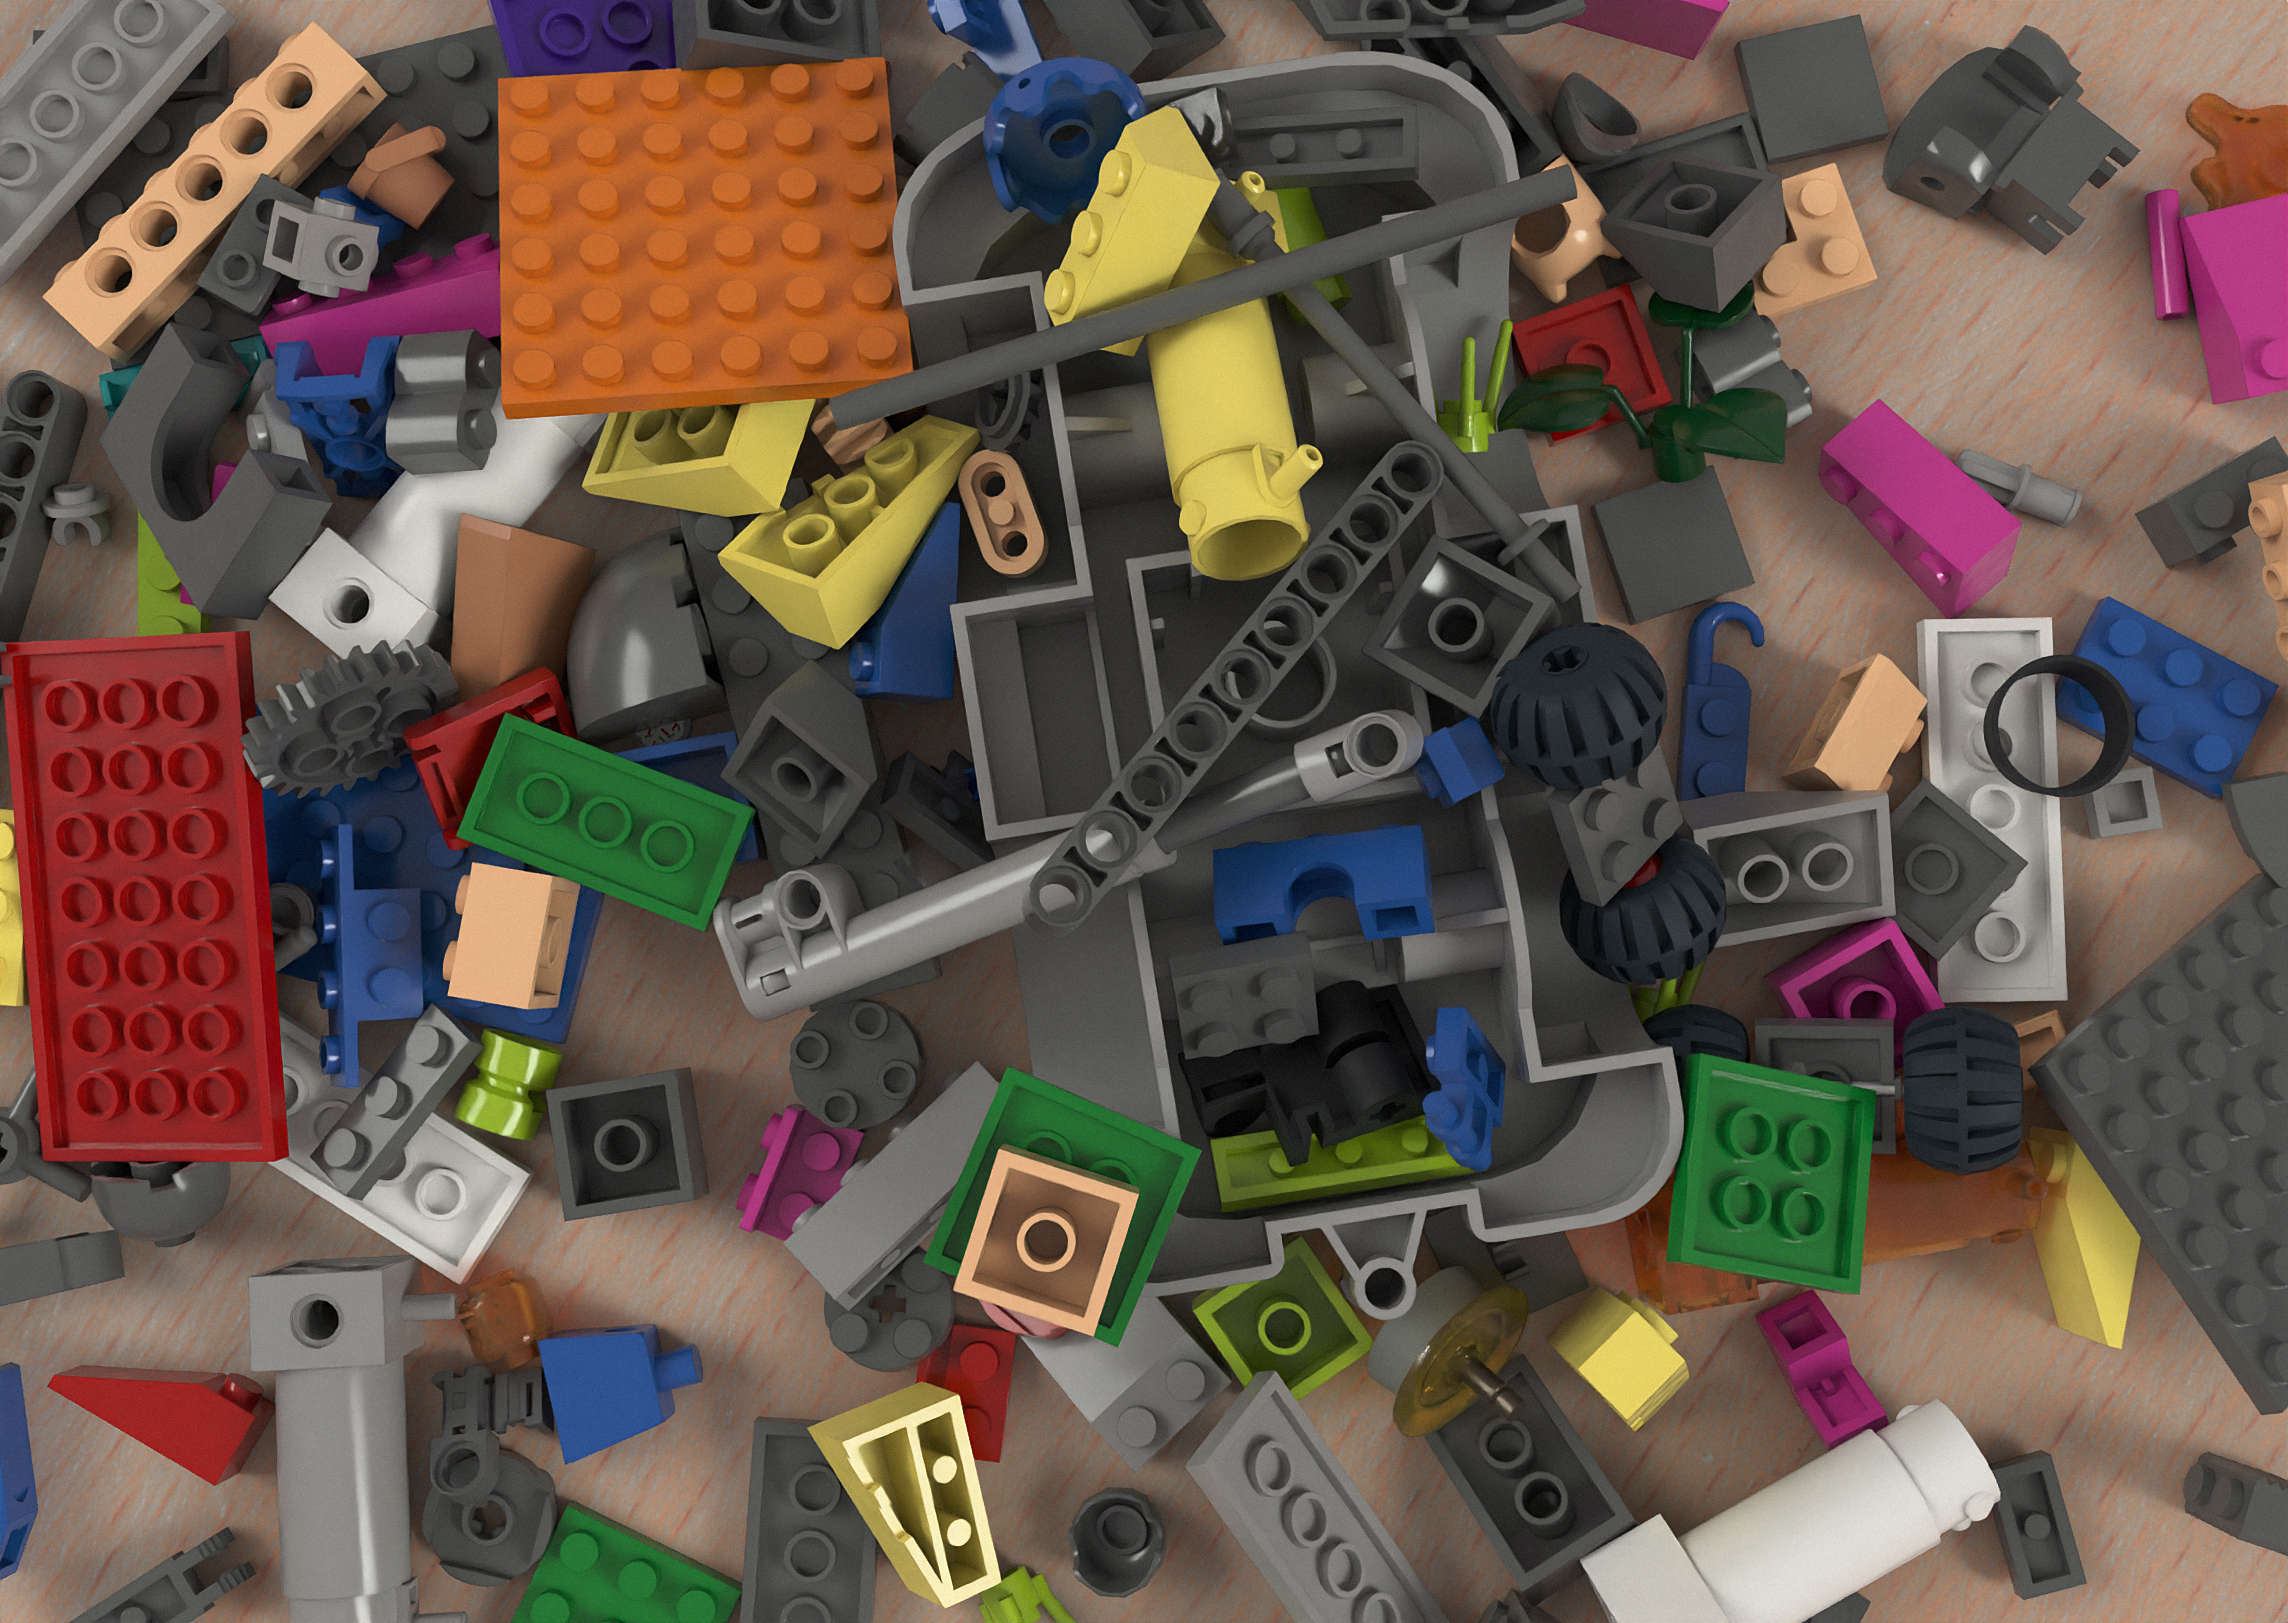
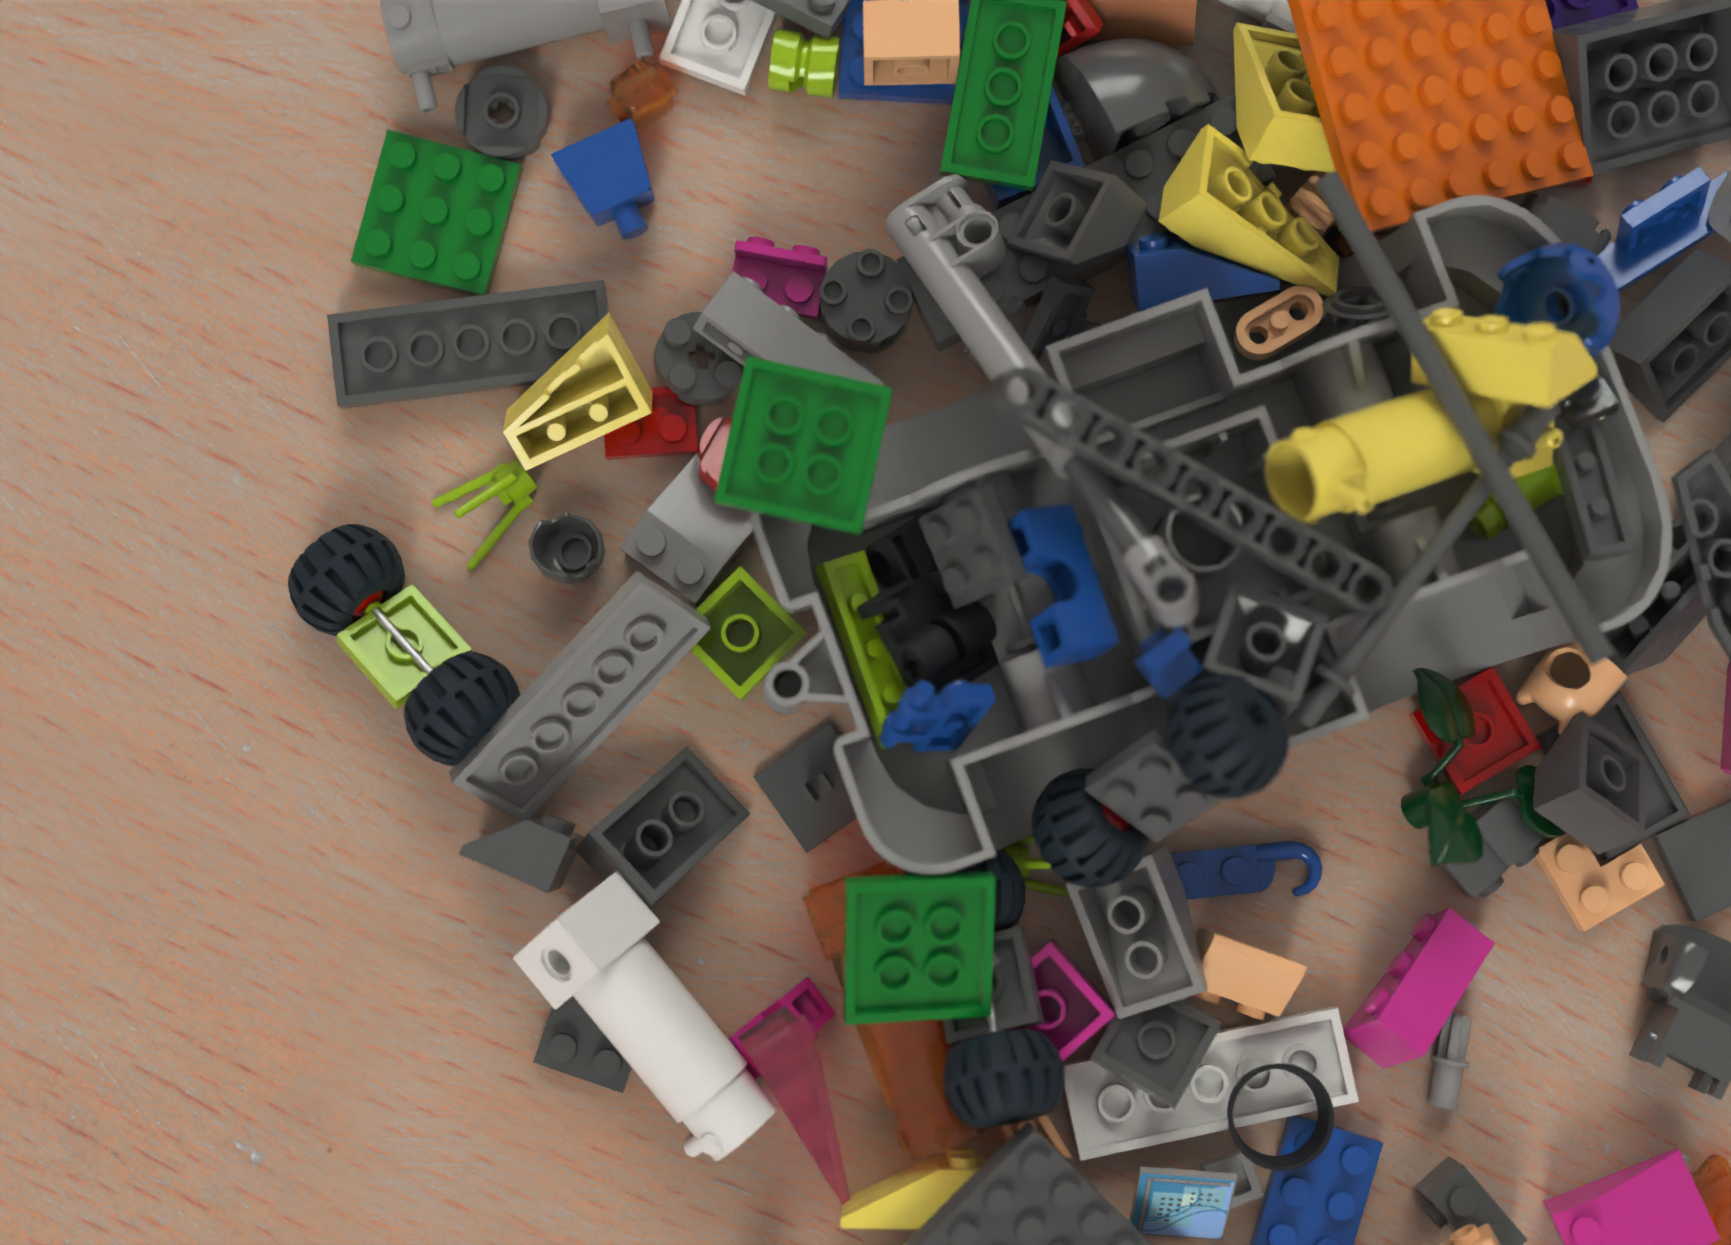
camera: 75 degrees right, 0 degrees up
(479, 1410) = (578, 89): dark grey piece -> none
(627, 1144) = (780, 152): dark grey brick -> none
(1047, 1239) = (782, 432): light nougat brick -> none
(1449, 1351) = (745, 752): piece -> none
(1465, 418) = (1413, 641): lime plant -> none
(1592, 123) = (1656, 698): dark grey cap -> none
(1622, 1354) = (759, 881): light yellow wedge -> none
(1672, 546) = (1354, 816): dark grey tile -> none
(1892, 1372) = (795, 1075): none -> clear pink slope
(2035, 1526) = (698, 1200): dark grey plate -> none
(2145, 876) = (1182, 1202): none -> piece
(2167, 255) = (1648, 1145): dark pink piece -> none

